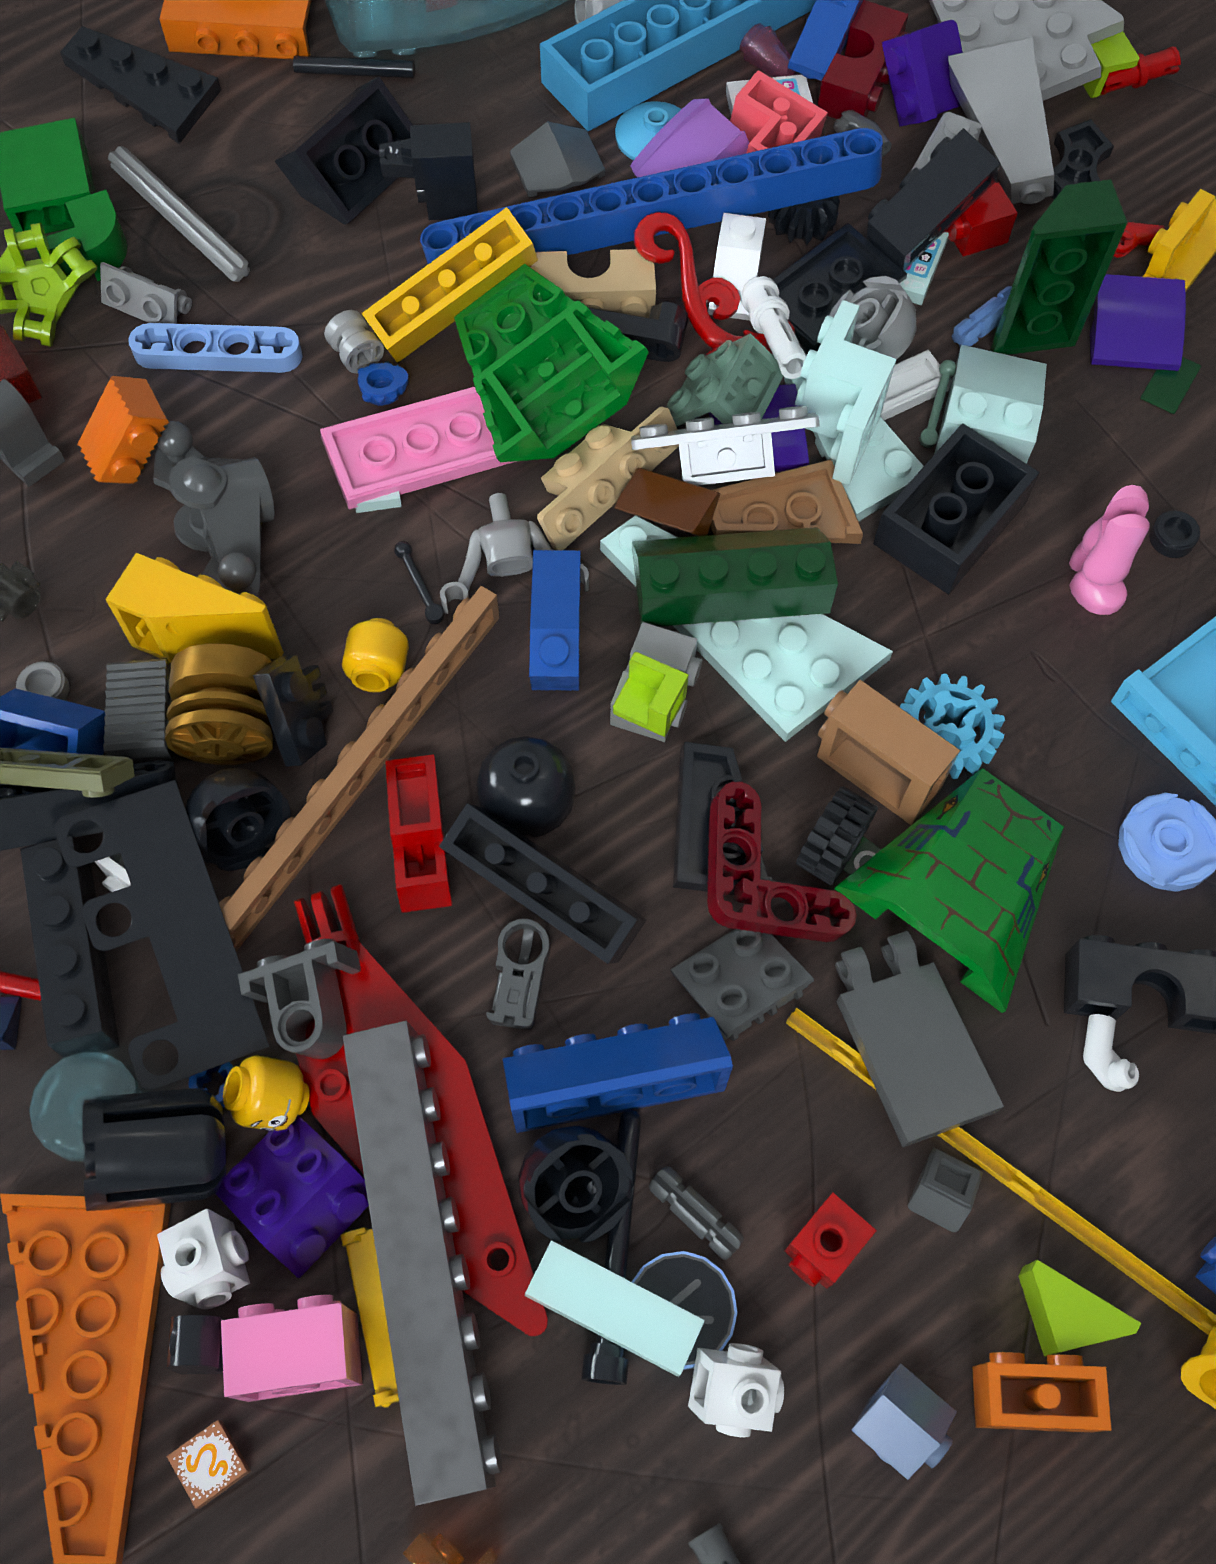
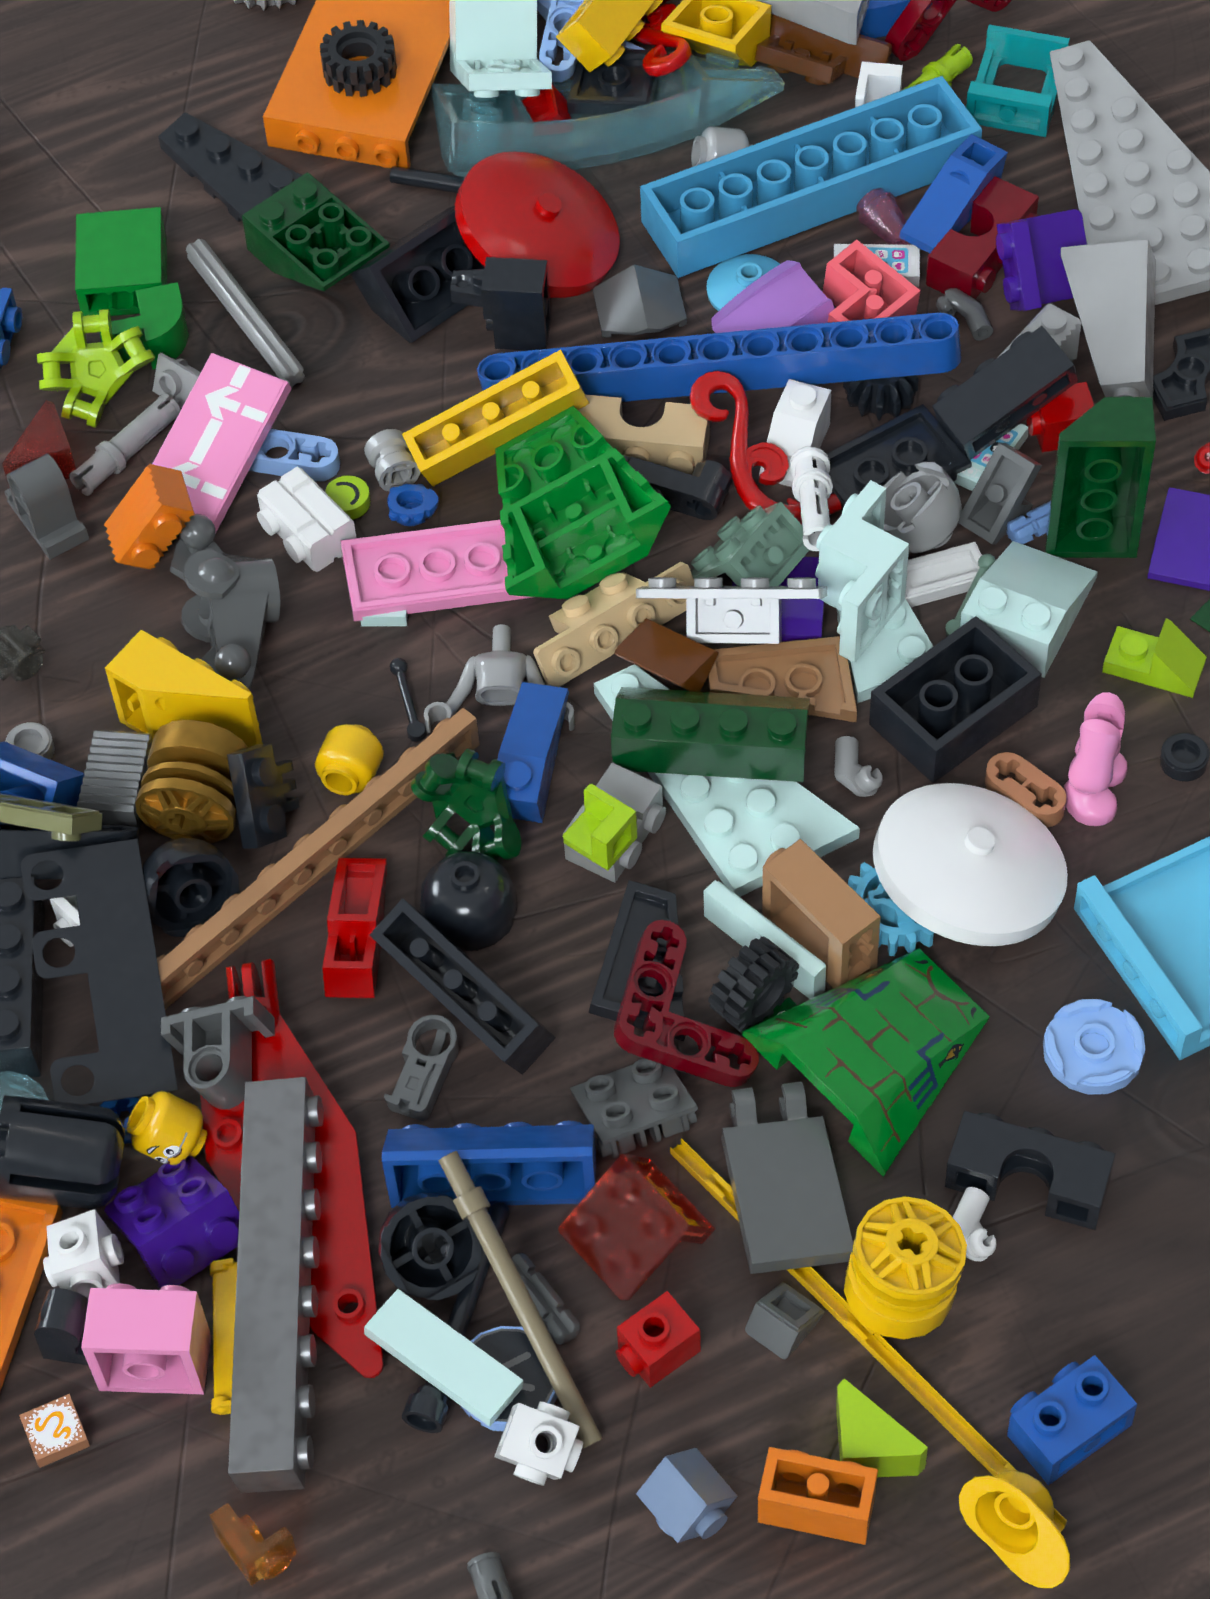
camera: 15 degrees right, 10 degrees down
(73, 372) = (112, 455): none -> light grey pin
(179, 334) = (221, 432): none -> bright pink tile
(228, 128) = (310, 235): none -> dark green slope
(279, 412) = (304, 519): none -> white brick
(316, 384) = (350, 495): none -> lime tile
(442, 78) = (538, 211): none -> red dish
(518, 678) = (477, 795): none -> dark green piece
(618, 1144) = (473, 1205): none -> dark tan bar
(772, 1115) = (632, 1224): none -> clear red bracket
(825, 778) = (746, 923): none -> light aqua tile
(877, 601) = (850, 773): none -> light grey arm
(944, 298) = (1000, 493): none -> dark grey slope
(1012, 675) = (970, 864): none -> white dish
(1037, 588) = (1028, 786): none -> nougat beam
(1047, 1141) = (904, 1267): none -> yellow wheel
(1128, 444) = (1161, 662): none -> lime slope

